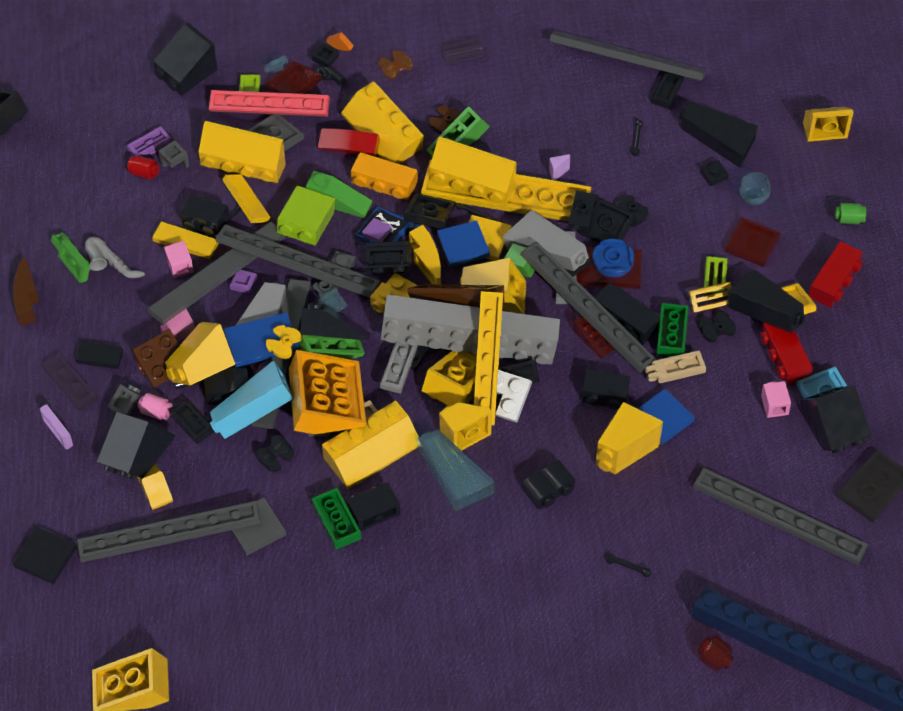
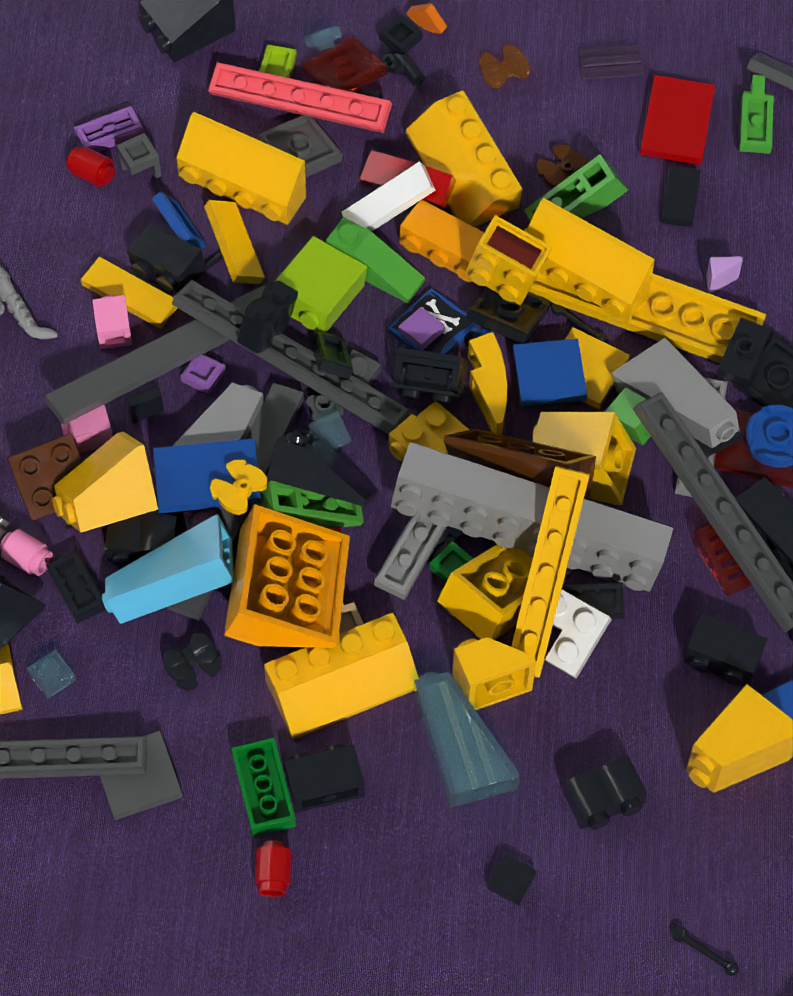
camera: 10 degrees right, 5 degrees up
(187, 476) = (51, 674): none -> clear light blue plate
(206, 190) = (178, 220): none -> blue tile
(211, 305) = (145, 404): none -> black tile
(279, 237) = (267, 316): none -> black brick
(323, 255) = (331, 354): none -> black tile
(342, 154) = (391, 198): none -> white tile
(352, 565) = (273, 869): none -> red brick
(422, 366) = (448, 561): none -> green plate
(424, 178) = (507, 260): none -> yellow piece
(501, 545) = (511, 880): none -> black tile
(512, 79) = (677, 120): none -> red tile
(523, 125) = (680, 196): none -> black tile
(561, 70) = (756, 118): none -> bright green hinge

